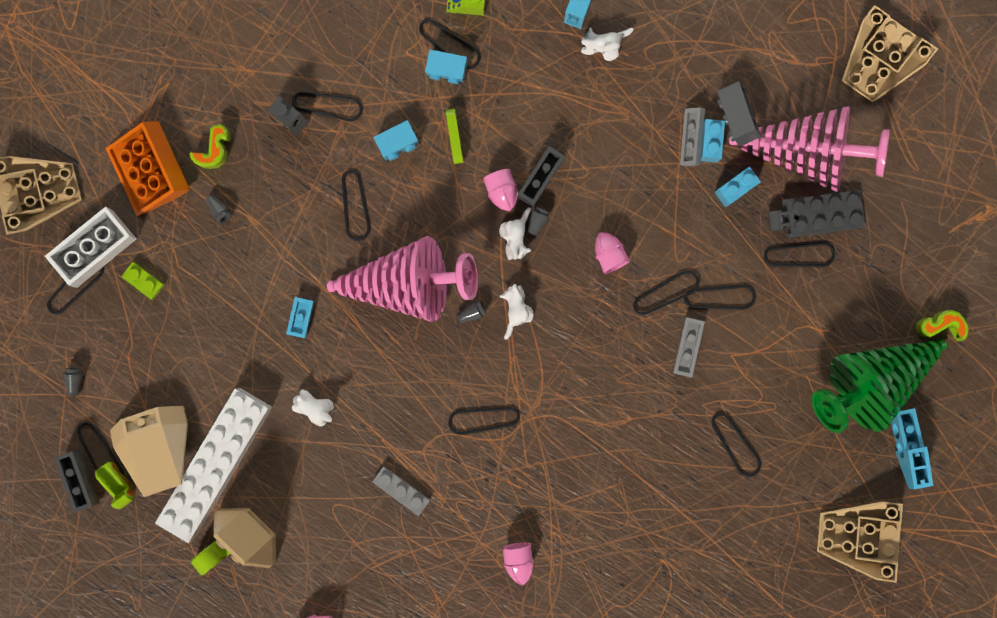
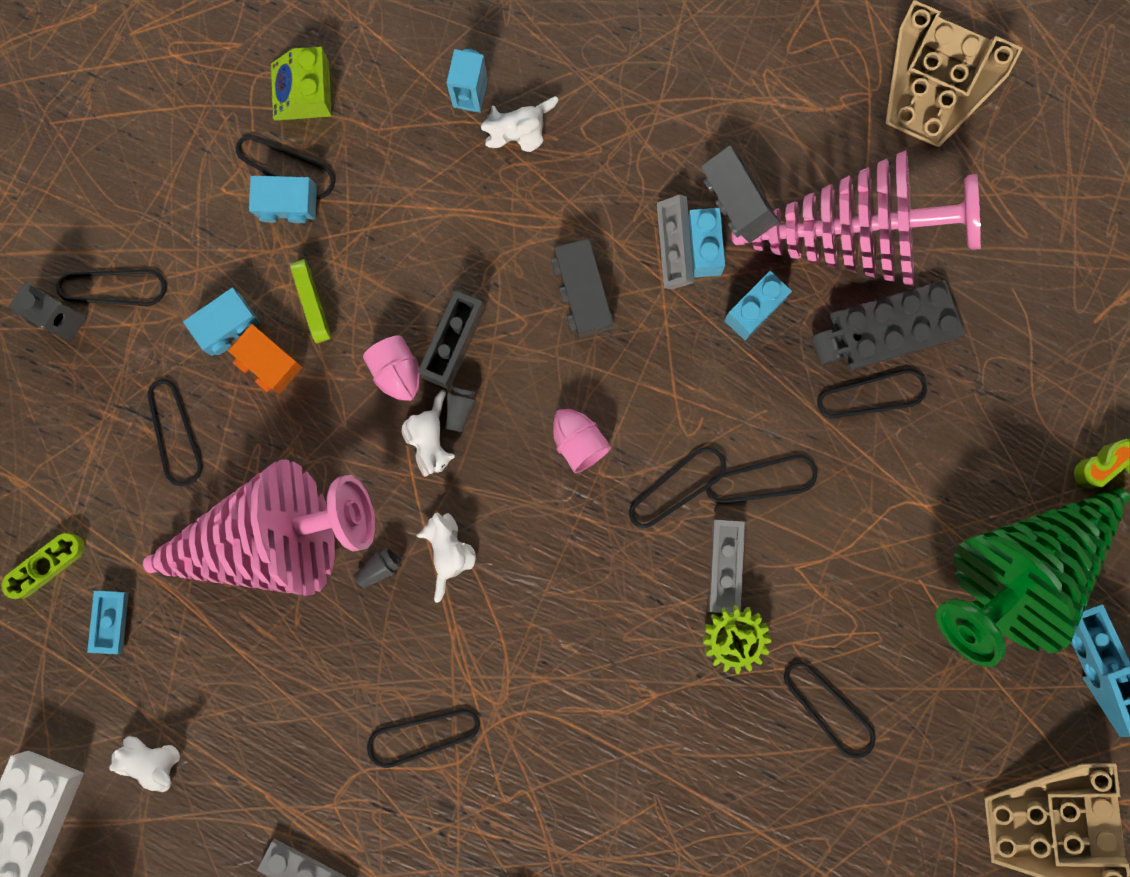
camera: 10 degrees left, 5 degrees down
(253, 287) = (28, 567): none -> lime beam
(420, 168) = (265, 359): none -> orange brick
(628, 157) = (582, 289): none -> dark grey brick
(694, 391) = (747, 634): none -> lime gear

